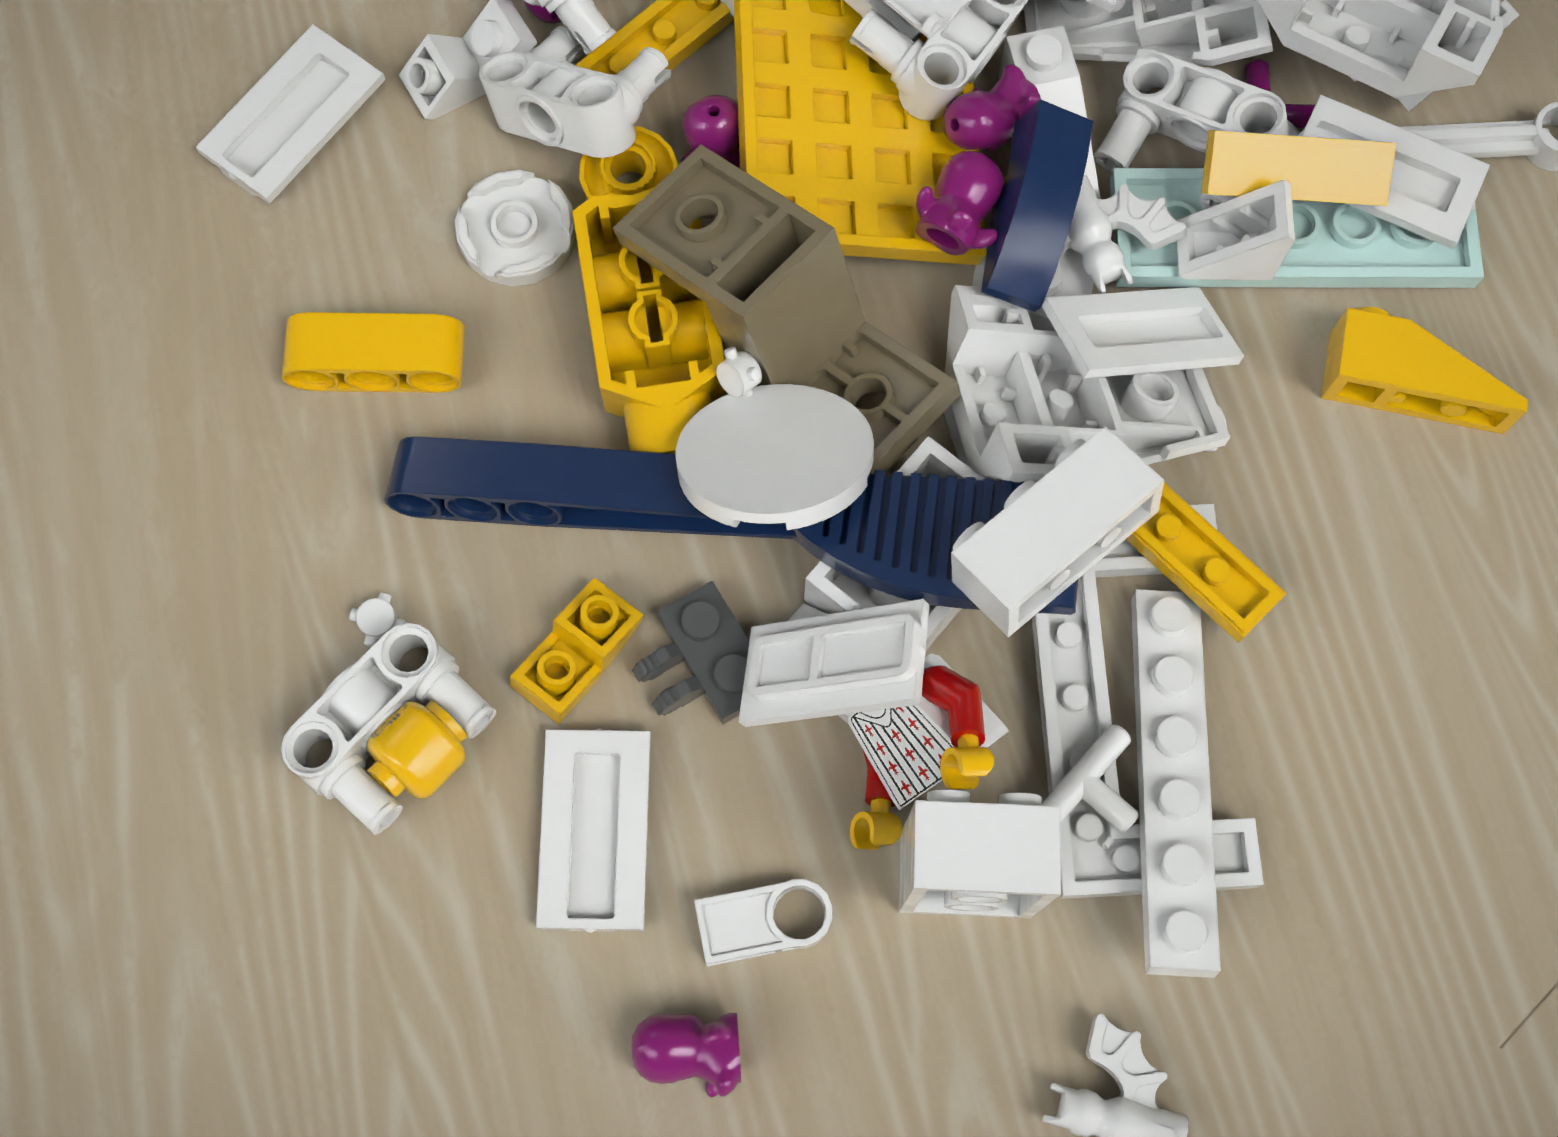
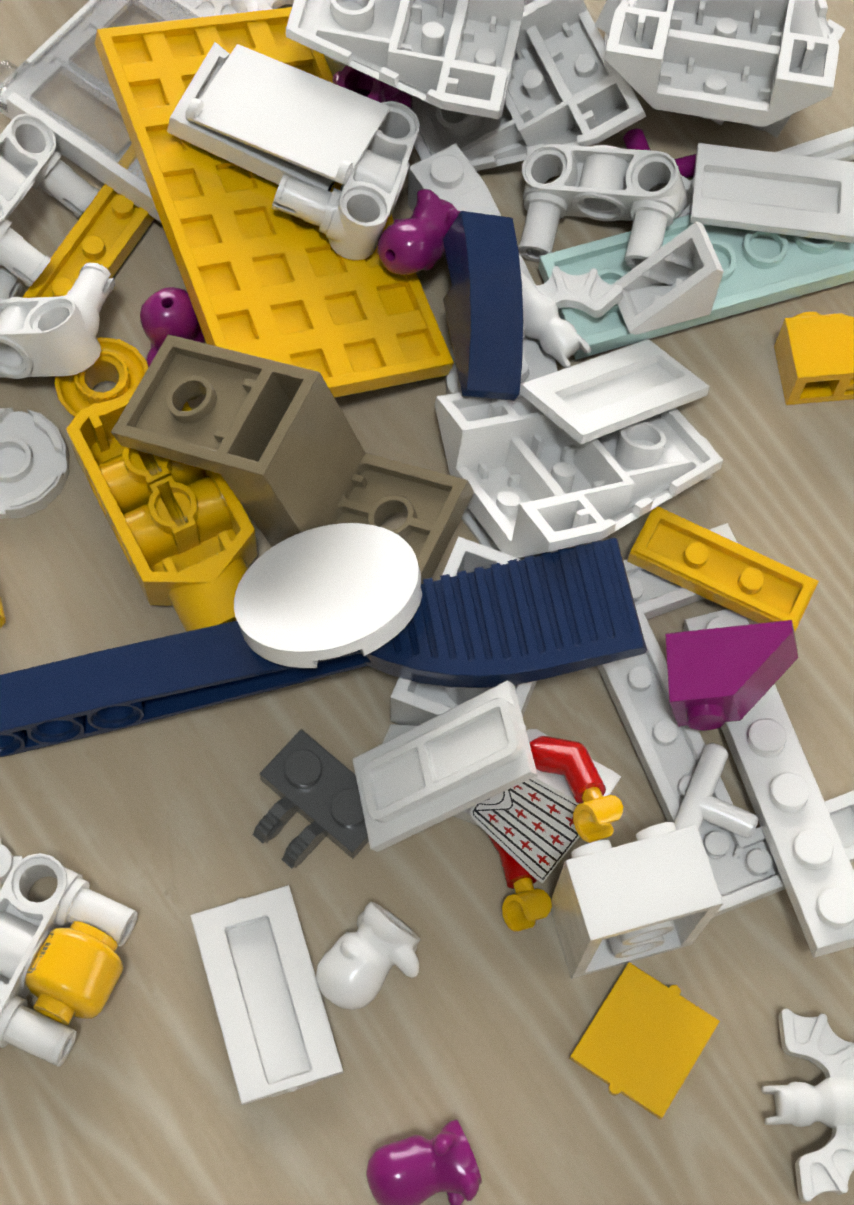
camera: 20 degrees left, 5 degrees down
(576, 651) = (194, 833): yellow slope -> none
(694, 828) = (362, 959): none -> white animal
(738, 373) = (268, 530): white piece -> none
(743, 924) = (435, 1036): white piece -> none
(951, 997) = (644, 1040): none -> yellow piece
(961, 199) = (416, 323): magenta animal -> none
(1055, 529) = (605, 582): white brick -> none
(1155, 656) = (725, 670): none -> magenta slope
(1313, 166) = (719, 203): yellow tile -> none

